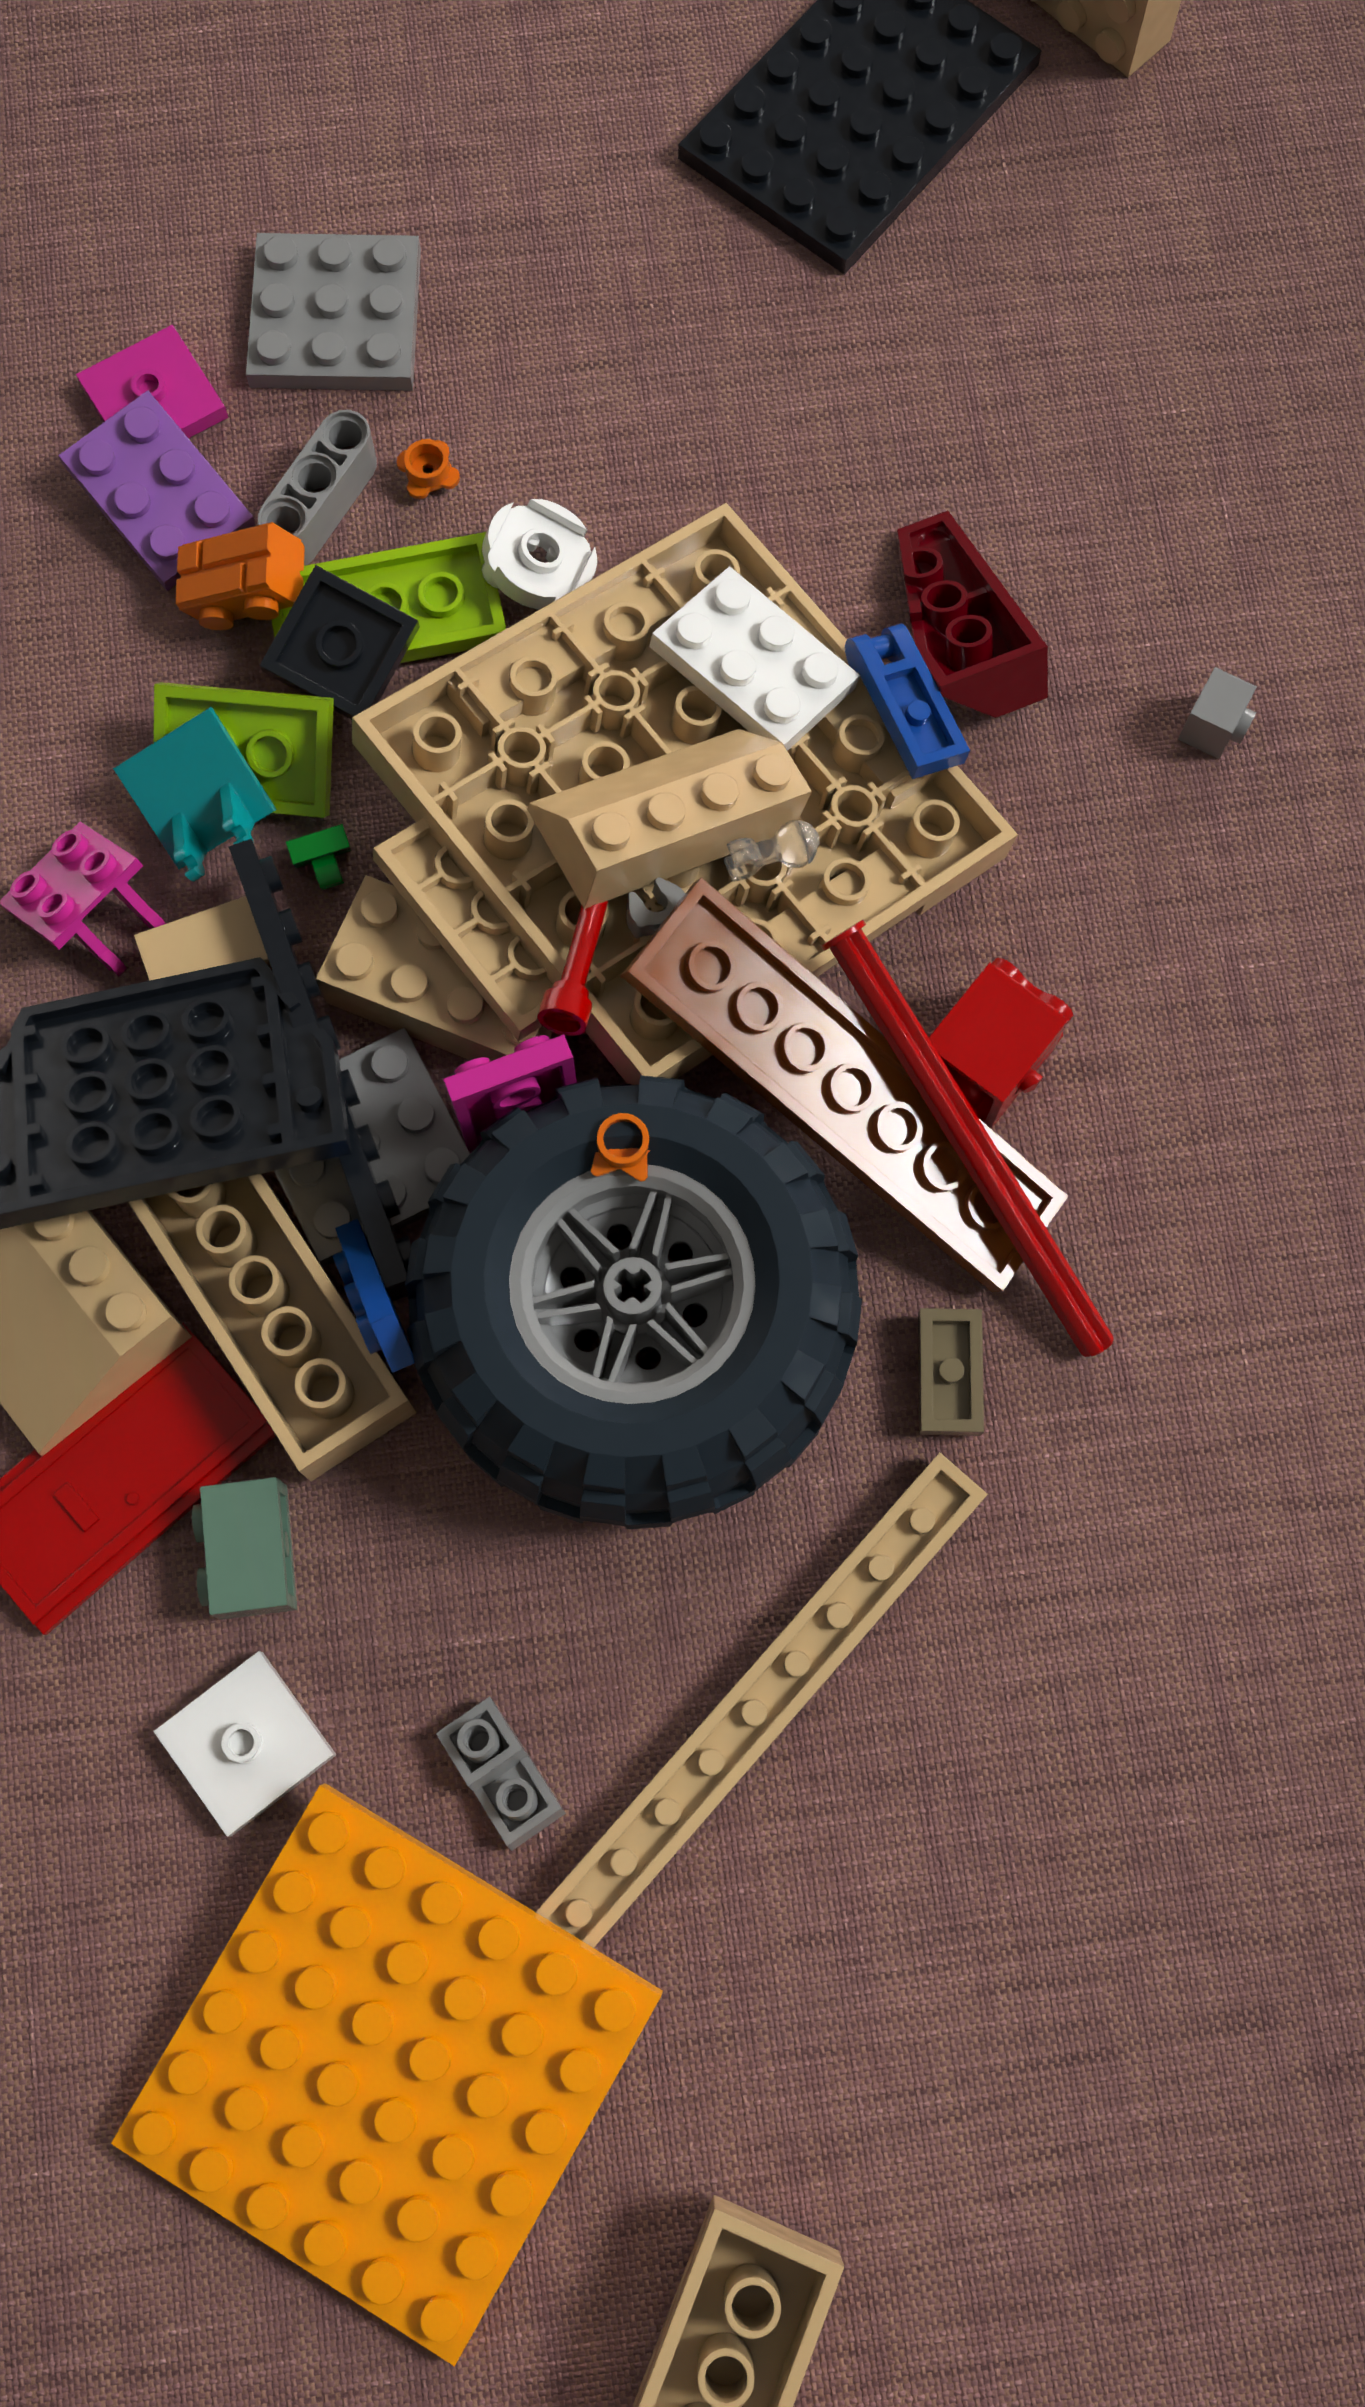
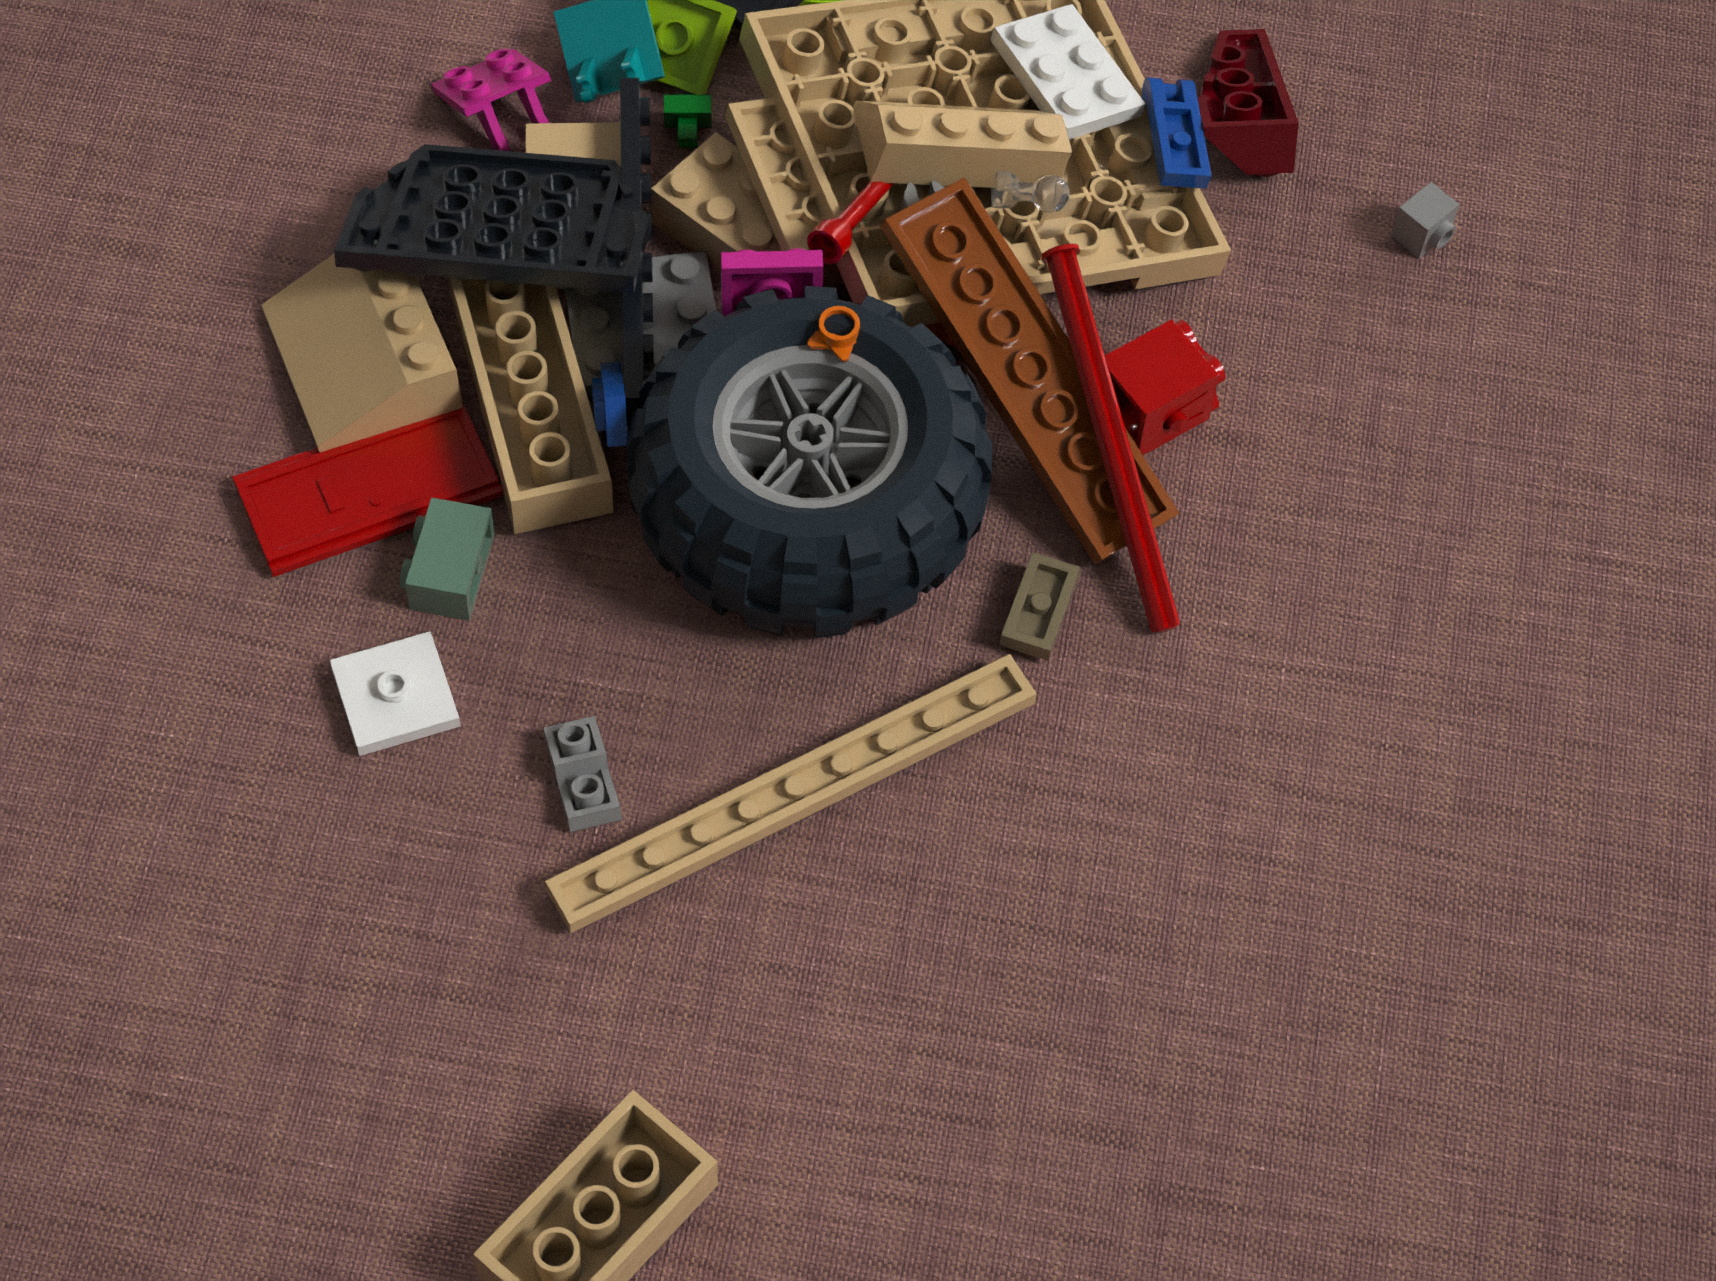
camera: 15 degrees right, 15 degrees down
(388, 2071) = (418, 941): light orange plate -> none

